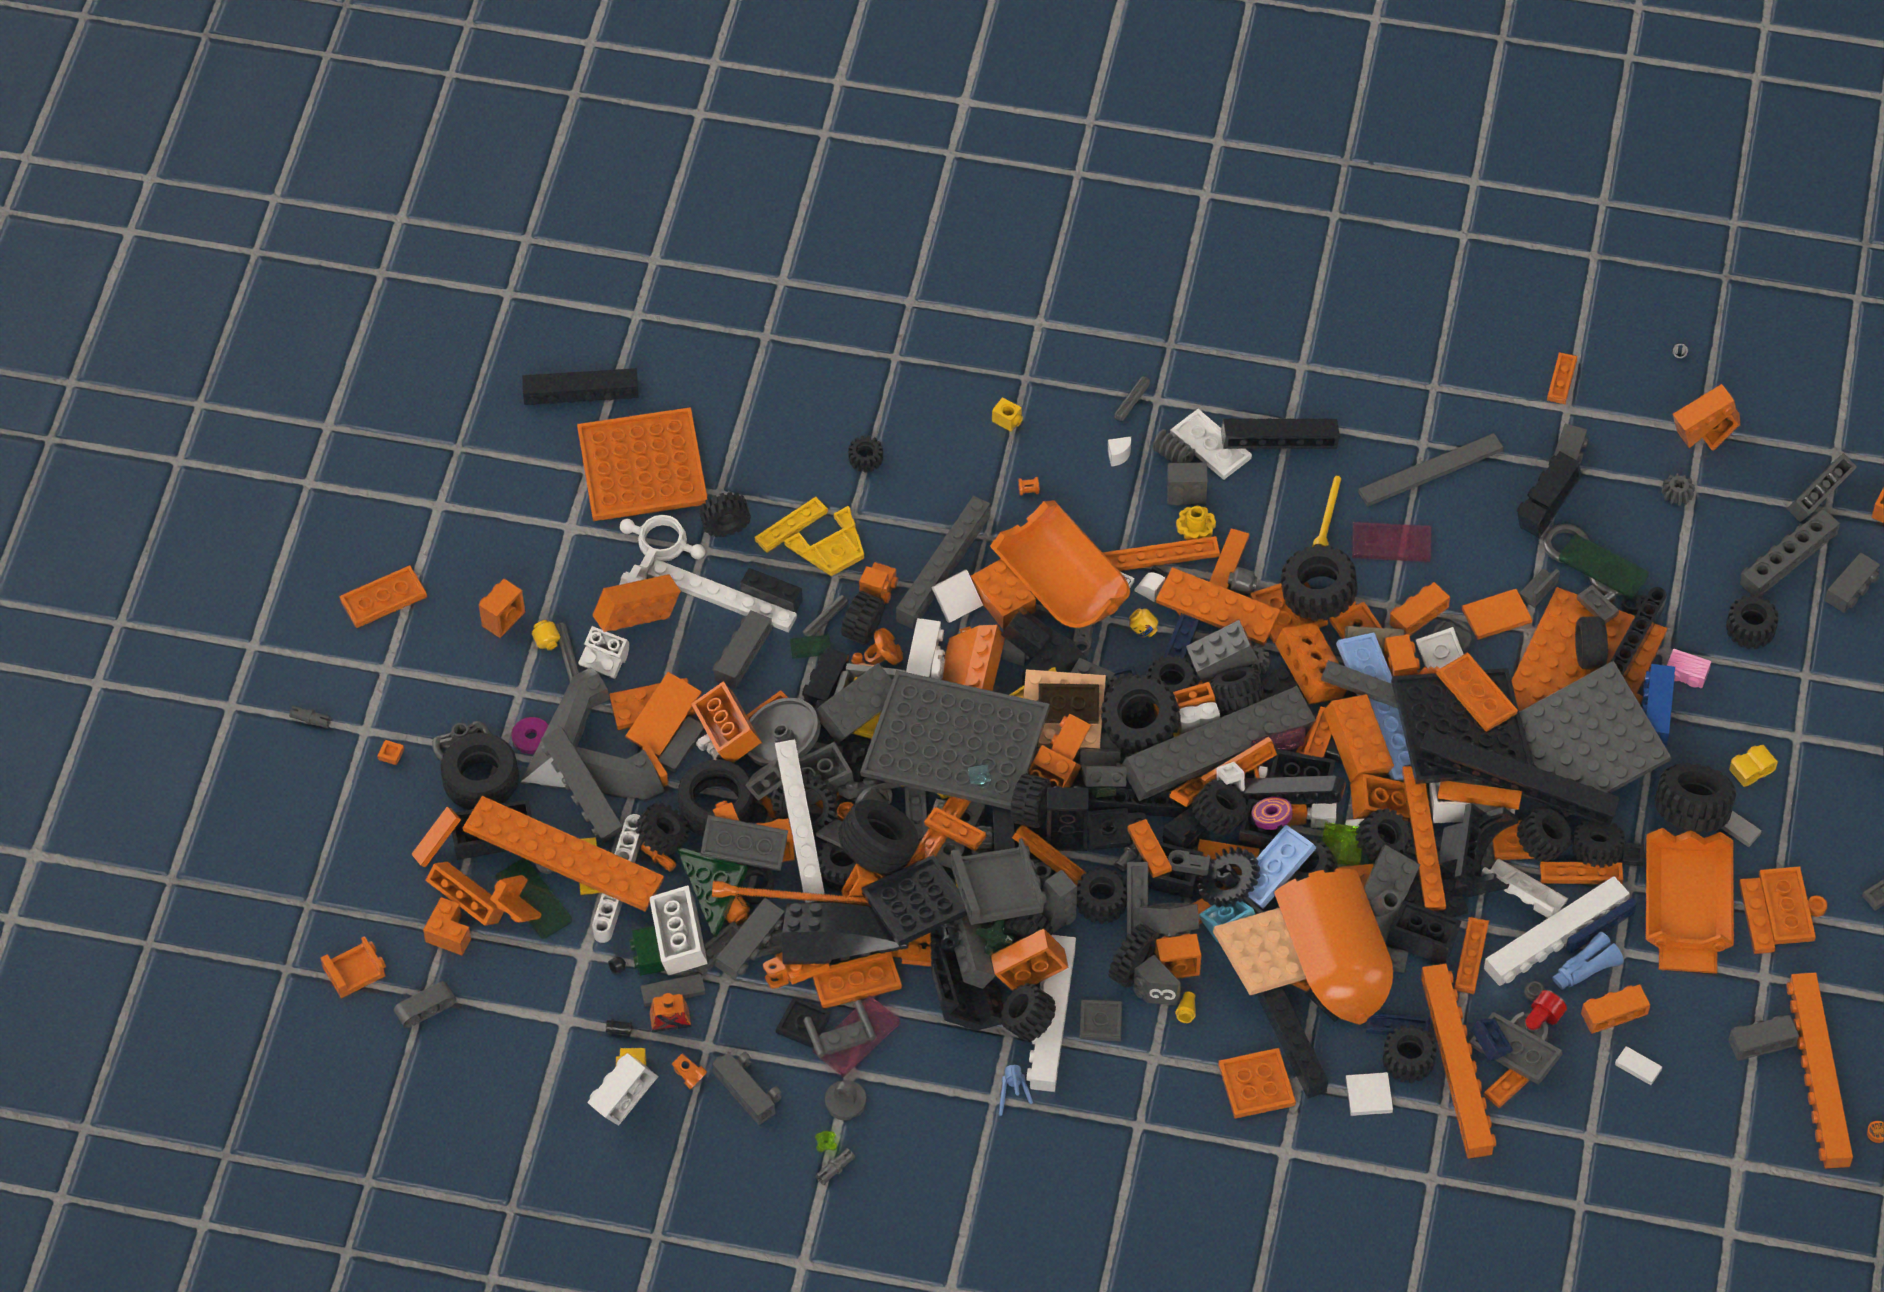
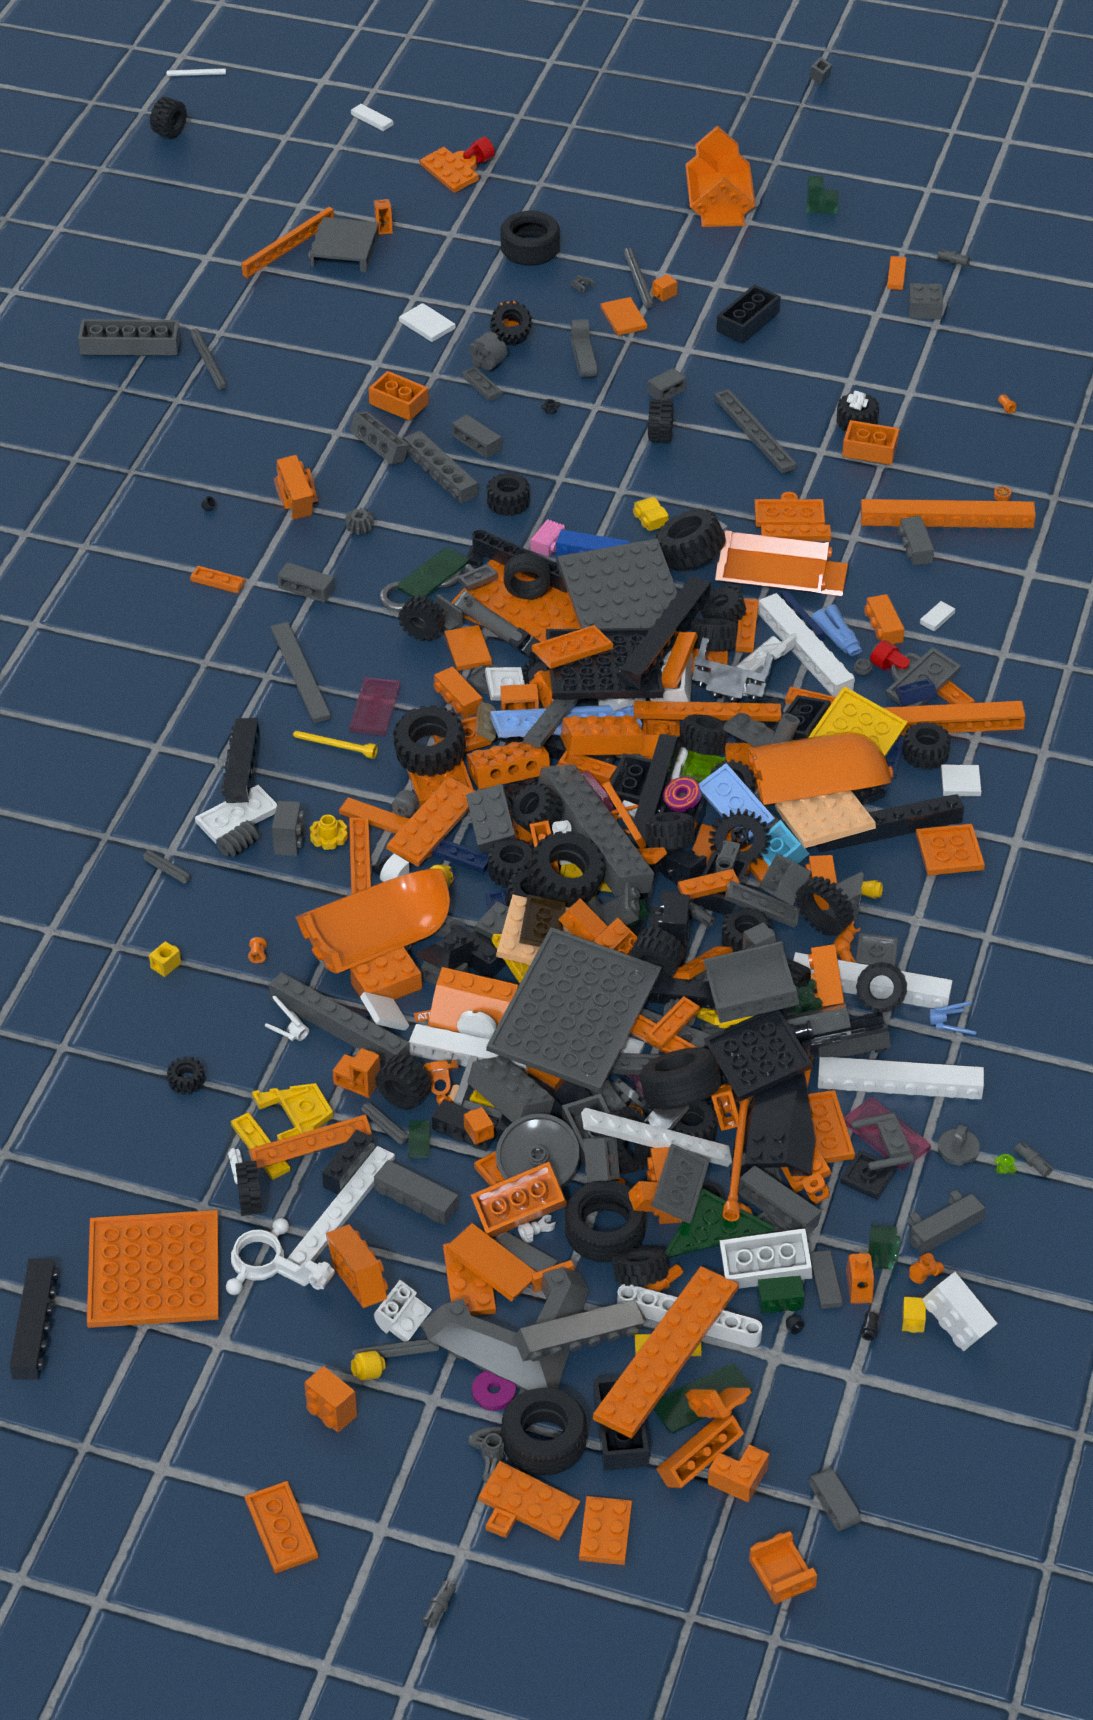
camera: 85 degrees left, 10 degrees down
(388, 832) = (605, 1530): none -> orange plate
(413, 771) = (529, 1500): none -> orange plate
(436, 837) = (628, 1472): orange tile -> none
(702, 1027) = (883, 1246): none -> clear green brick
(766, 509) = (234, 1157): none -> white axle
(790, 557) = (308, 1142): none -> orange plate
(811, 680) = (478, 1125): none -> orange brick
(925, 1046) = (901, 1077): none -> white brick
(932, 531) = (297, 1028): none -> white plant
(979, 774) = (627, 985): clear light blue plate -> none
(1098, 983) = (843, 942): none -> orange arm
(1119, 450) = (230, 879): white brick -> none
(1231, 774) = (639, 814): white panel -> none
(1419, 979) = (857, 714): none -> yellow plate
(1509, 654) = (516, 637): none -> dark grey piece
(1516, 559) = (429, 612): none -> black tyre
(1549, 494) = (354, 582): black piece -> none

